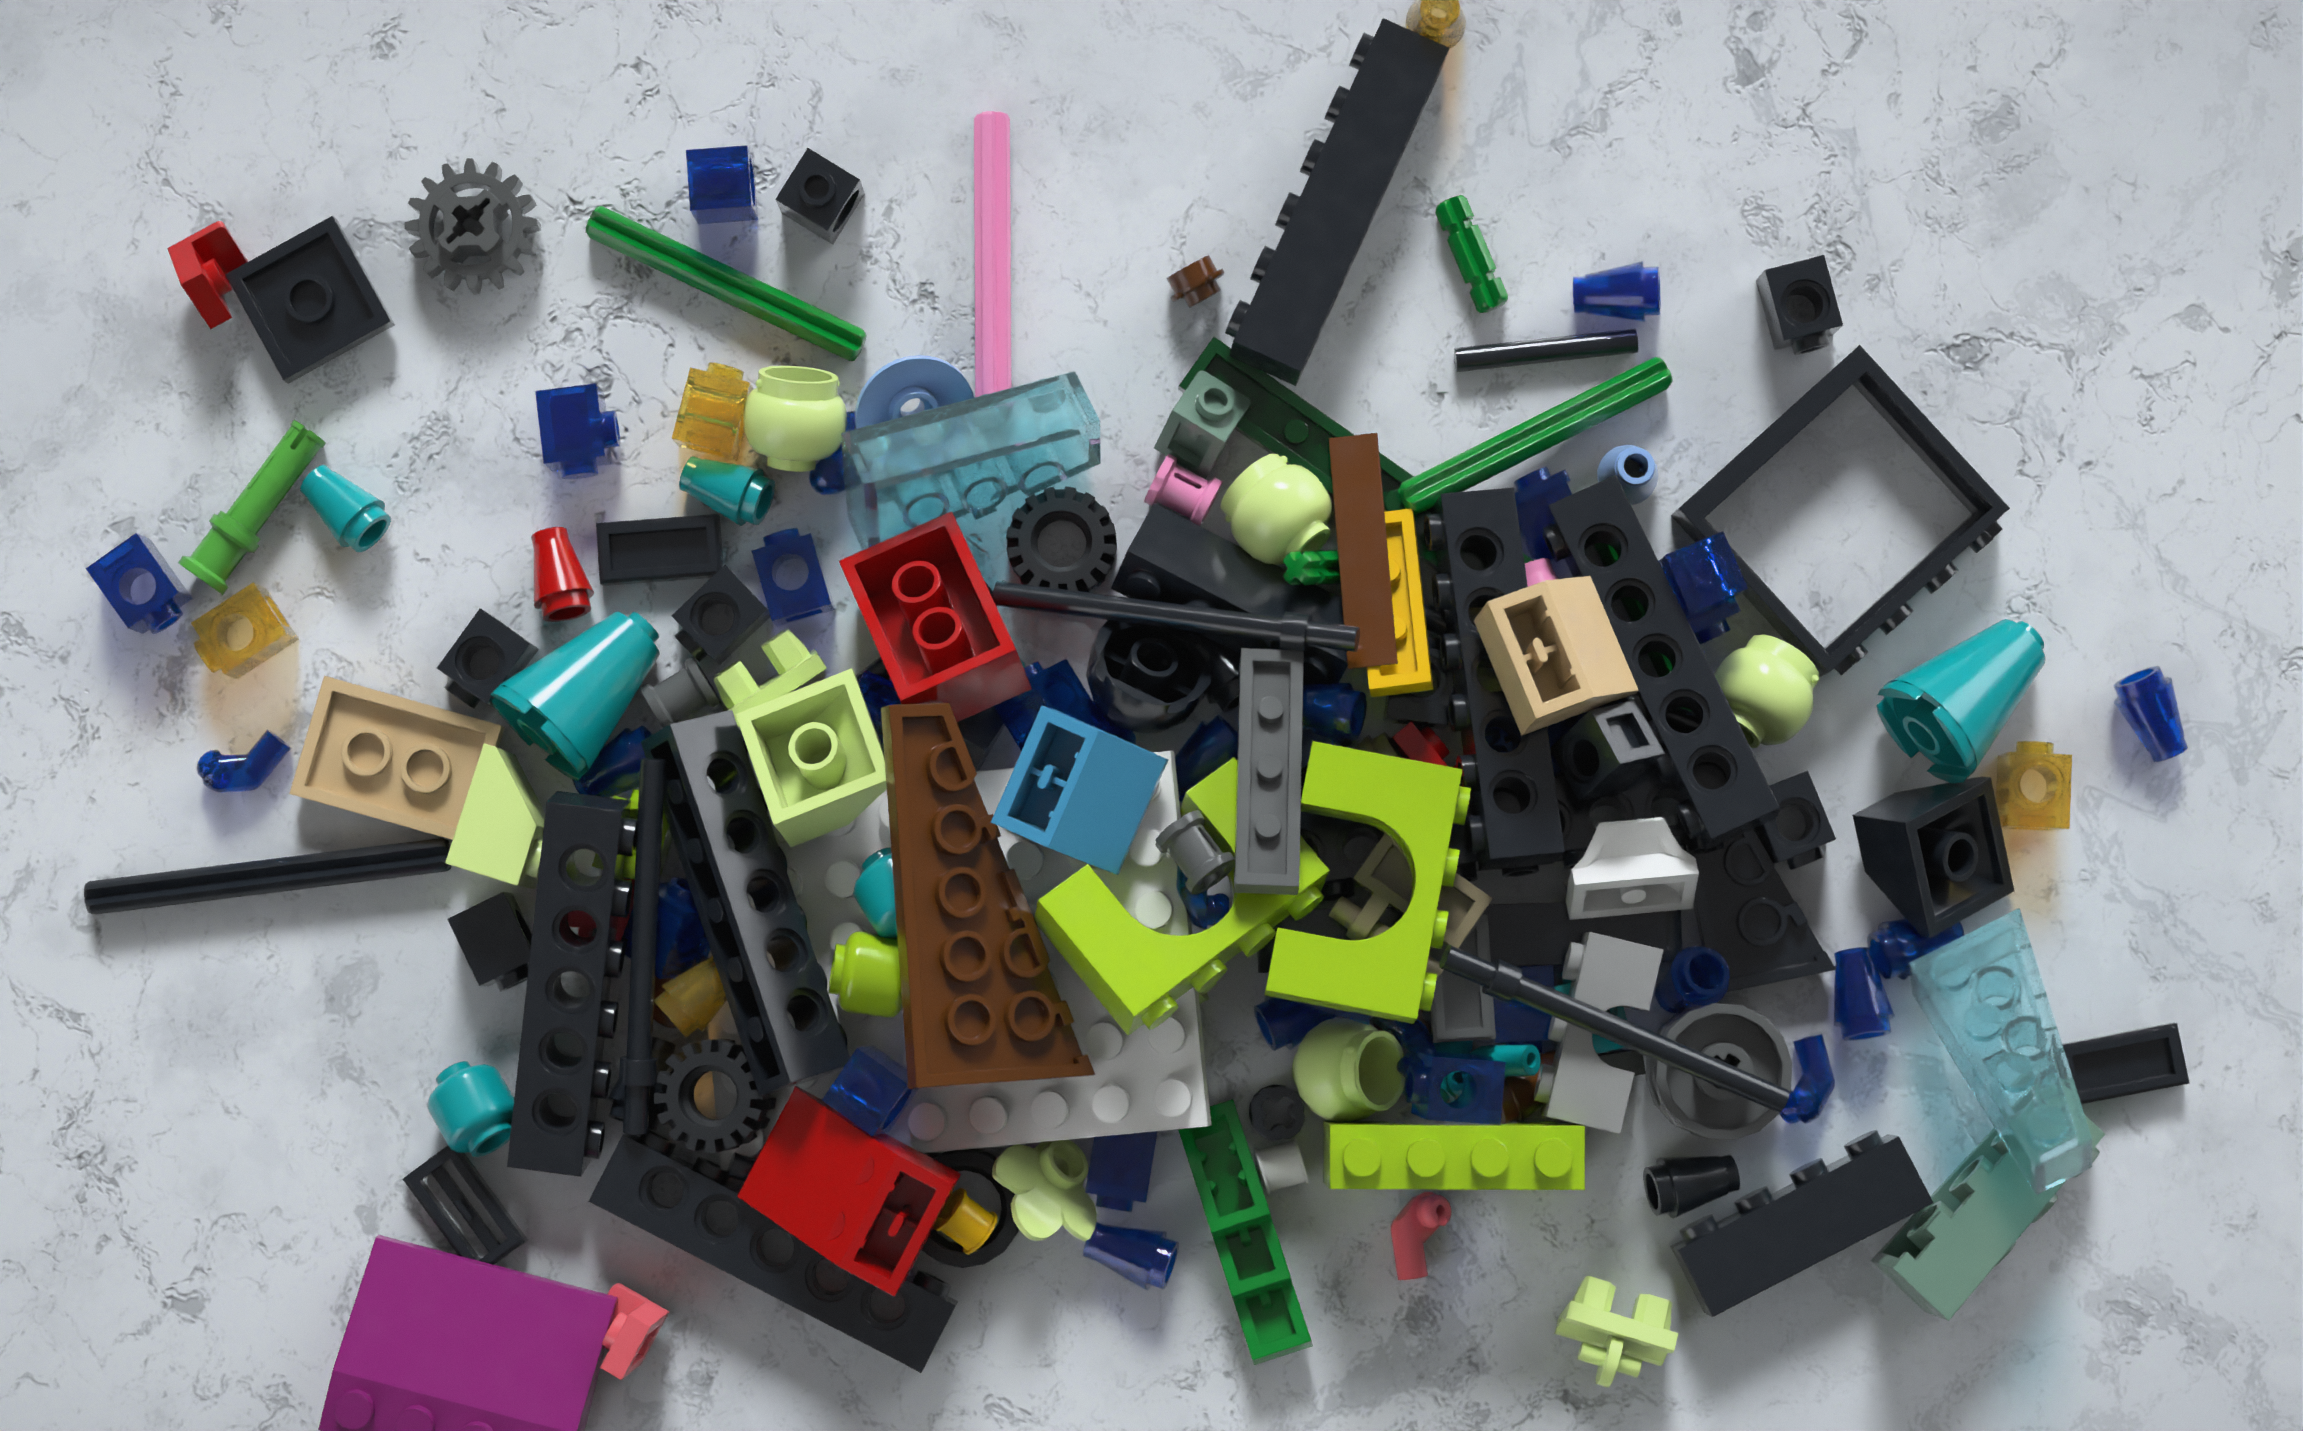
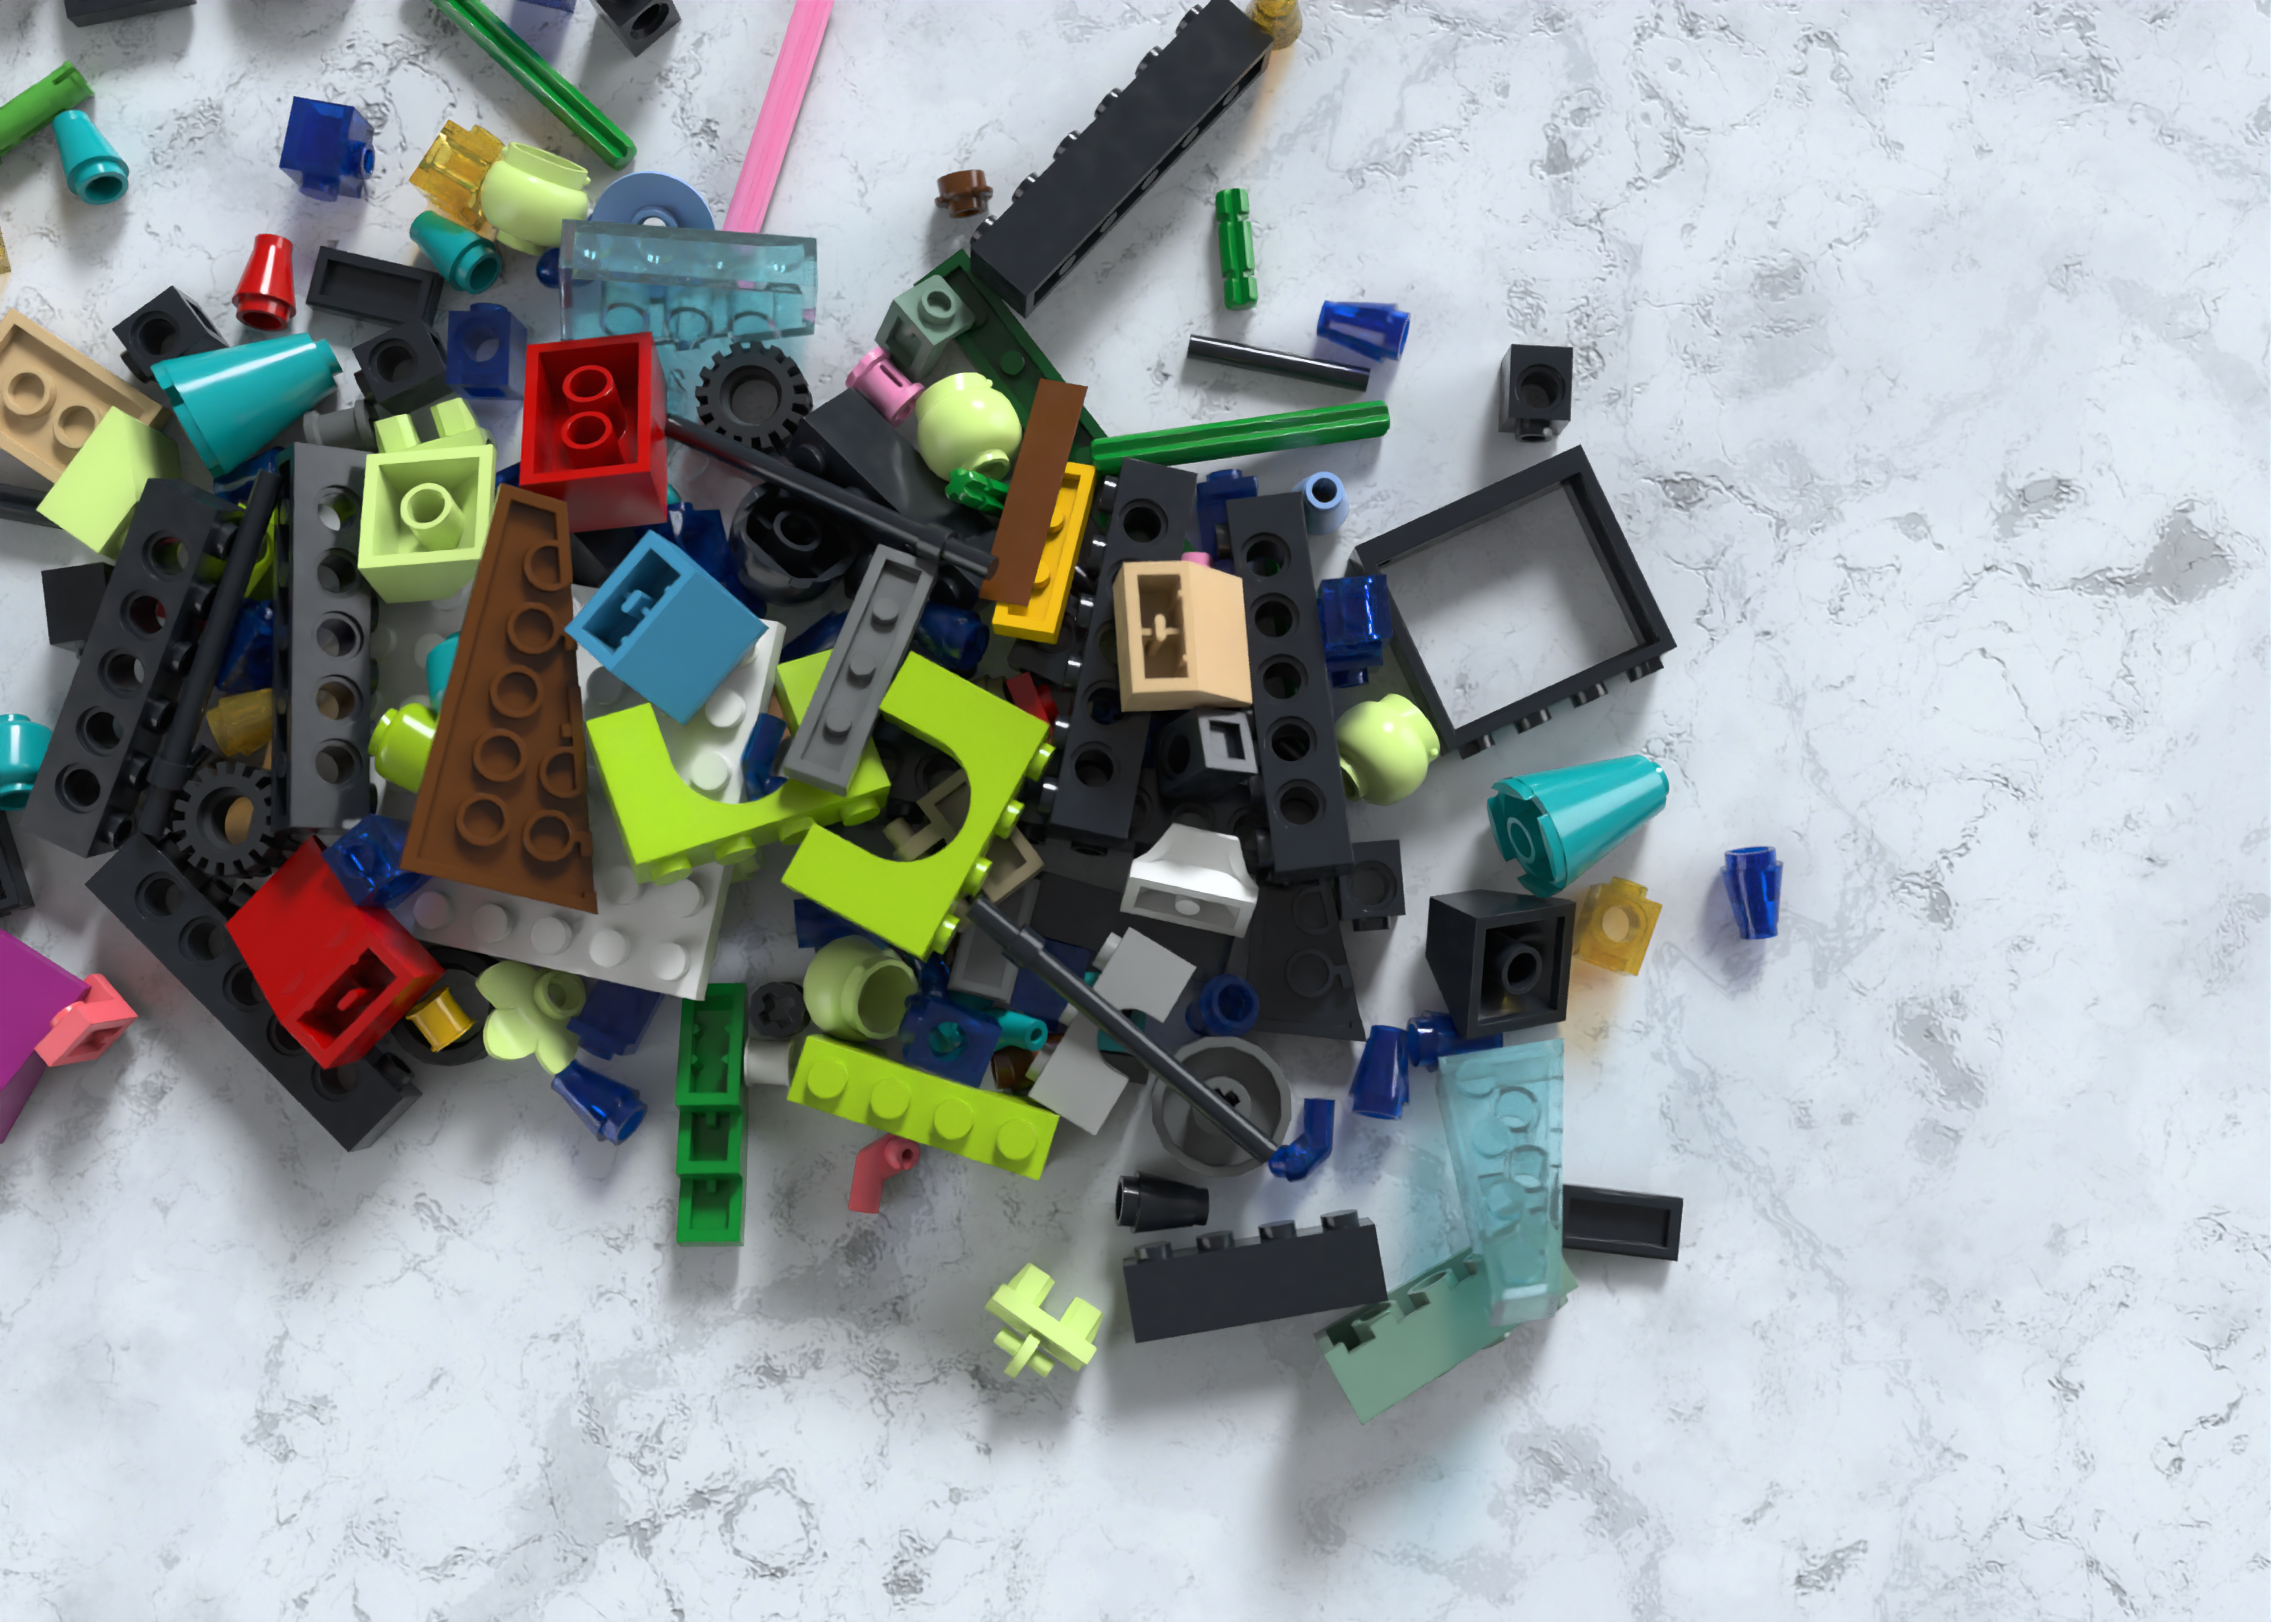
camera: 20 degrees right, 0 degrees up
(1195, 852) = (762, 725): dark grey bush -> none

